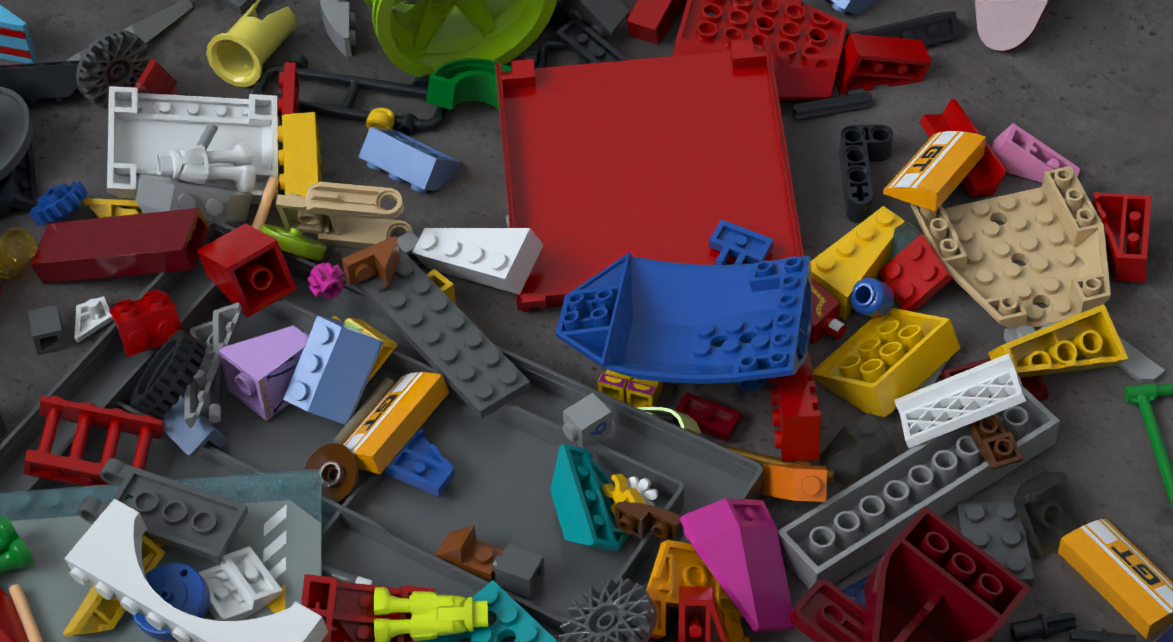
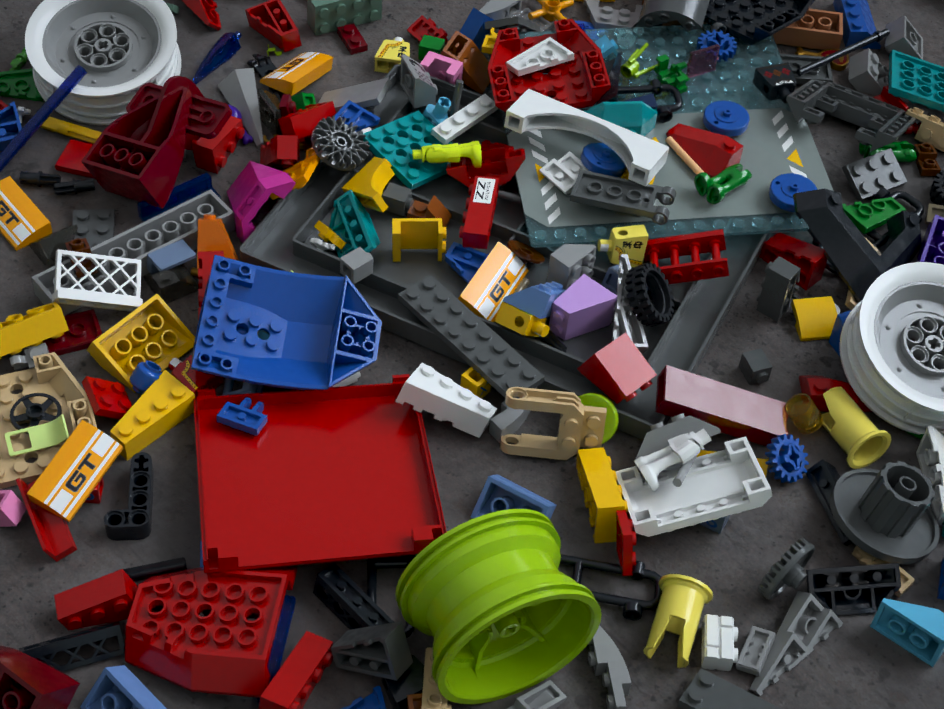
camera: 170 degrees right, 0 degrees up
(91, 317) = (729, 376): white piece -> none
(145, 321) = (681, 337): red bracket -> none
(156, 80) = (749, 553): red wedge -> none
(174, 28) = (755, 650): none -> light grey plate
(179, 460) = (625, 240): none -> light yellow torso
(207, 25) = (718, 643): none -> white brick
(265, 202) = (623, 454): light nougat bar -> none
(269, 432) = (570, 263): none -> light grey slope
(326, 280) = (554, 360): dark pink gear -> none
(377, 259) = (518, 361): dark orange slope -> none
(390, 519) = (480, 212): none -> red brick
(492, 484) = (417, 234): none -> yellow panel
(566, 566) = (370, 183): none -> yellow arch
(642, 518) = (320, 207): reddish brown slope -> none
(862, 458) = (169, 256): none -> sand blue panel
(902, 237) = (109, 422): clear light blue slope -> none
(994, 225) = (41, 436): none -> yellowish green piece
(1005, 255) = (34, 411): none -> black wheel

